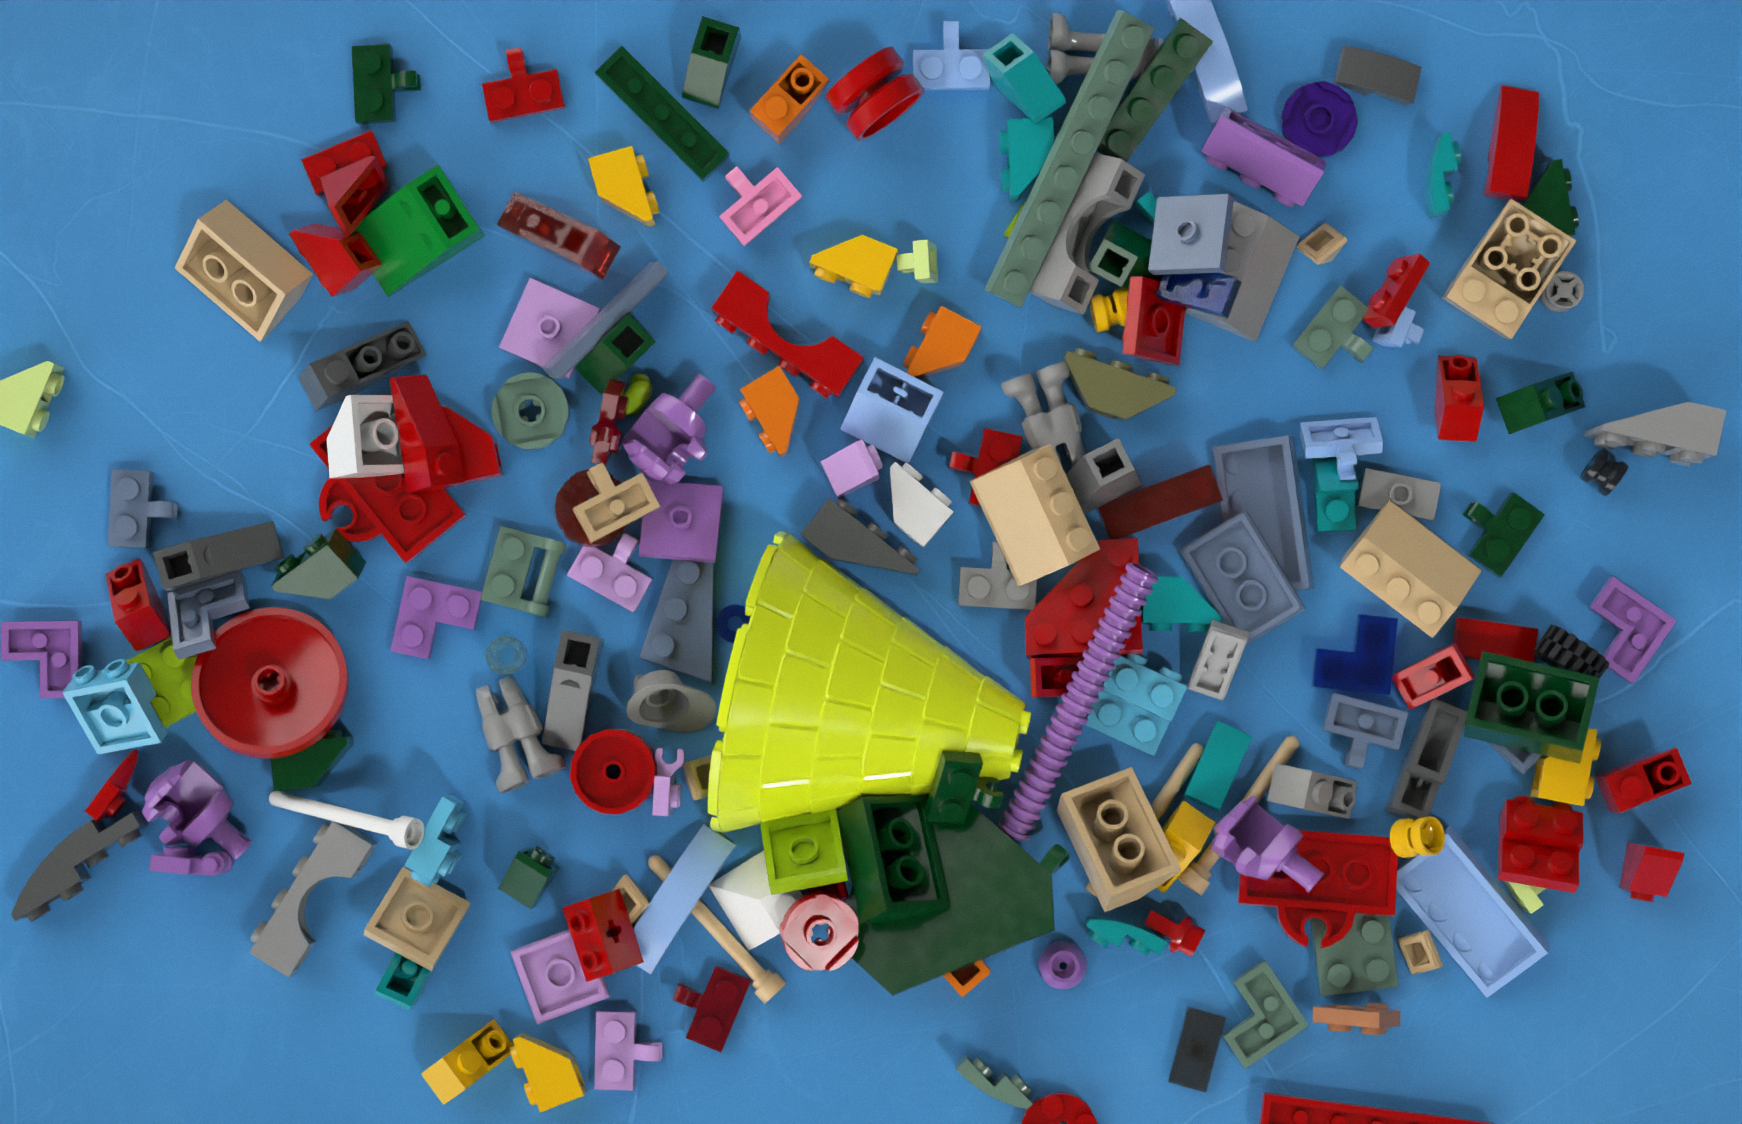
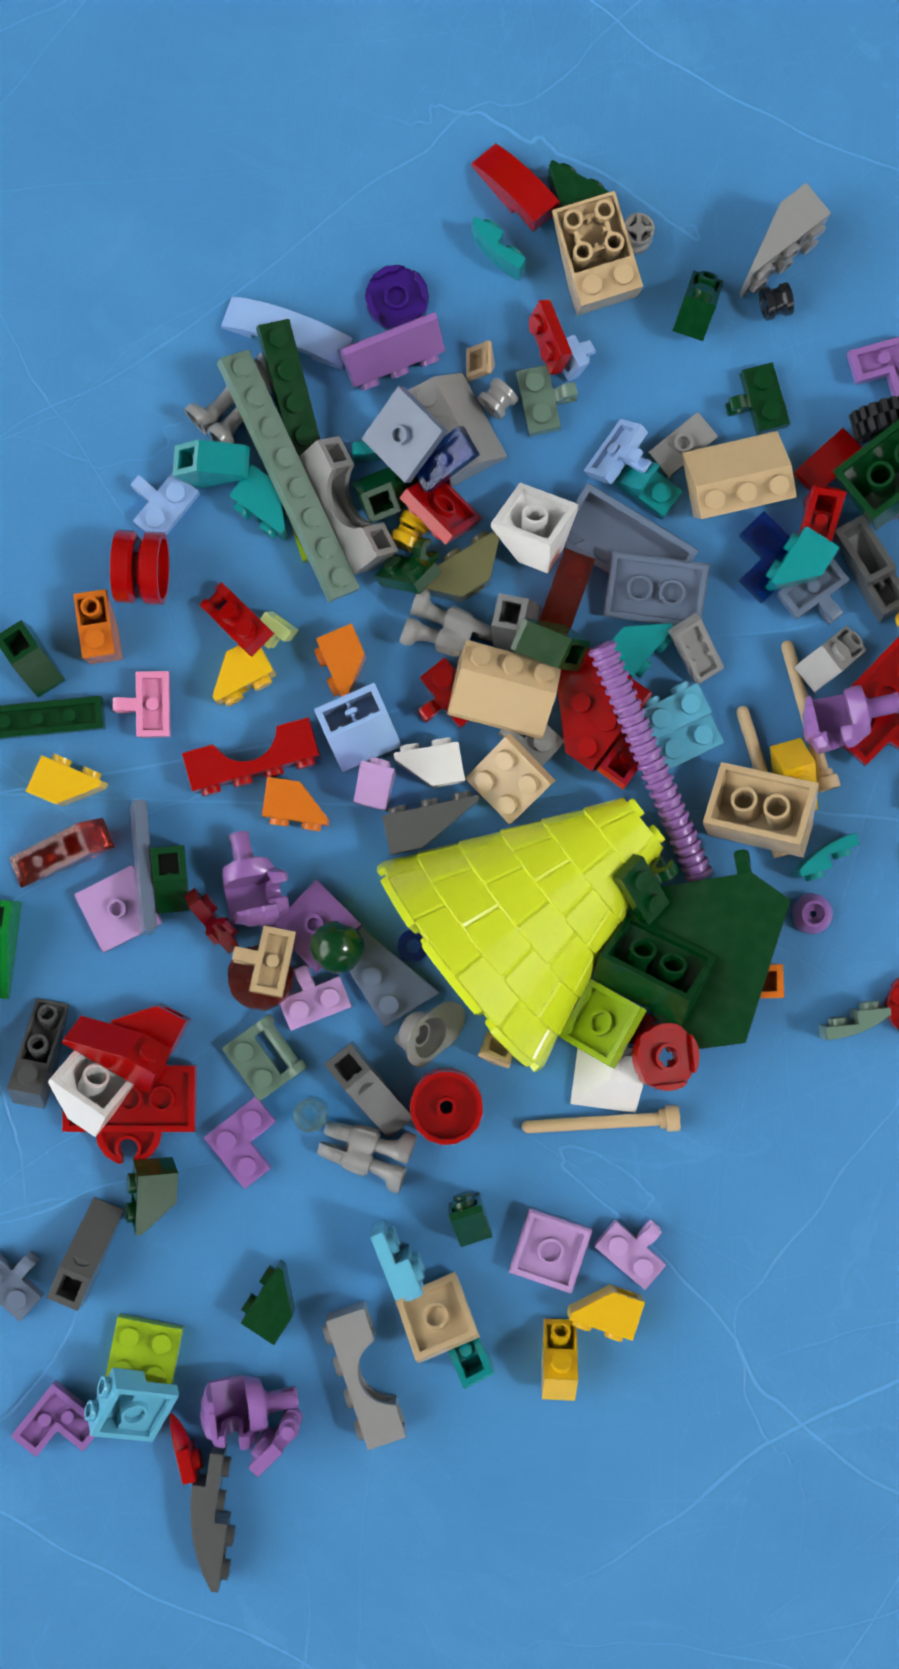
camera: 55 degrees left, 0 degrees up
(137, 605) = (75, 1335): red slope -> none
(196, 607) = (109, 1297): sand blue plate -> none
(270, 683) = (199, 1288): red dish -> none
(403, 831) = (372, 1283): white piece -> none
(513, 397) = (145, 973): sand green plate -> none
(603, 935) = (548, 1202): red brick -> none
(633, 897) = (538, 1165): tan slope -> none
(639, 392) = (209, 884): lime arm -> none
(667, 792) = (487, 1081): lavender plate -> none
(676, 555) = (336, 947): none -> dark green hair
(680, 894) = (563, 1132): light blue slope -> none
(715, 1007) = (655, 1165): dark red plate -> none
(899, 220) = (237, 619): none -> red plate
(958, 587) = (510, 779): none -> tan plate
(1071, 342) = (410, 573): none -> dark green plate
(1110, 523) = (551, 644): none -> dark green slope
(1184, 936) = (858, 818): red piece -> none
(1209, 420) = (535, 526): none -> white slope
(1218, 766) = (765, 706): teal slope -> none
(1300, 289) = (497, 398): none -> light grey wheel
(1377, 693) = (804, 562): none -> teal slope
(1378, 74) = (397, 234): dark grey slope -> none
(1458, 398) = (652, 355): red slope -> none

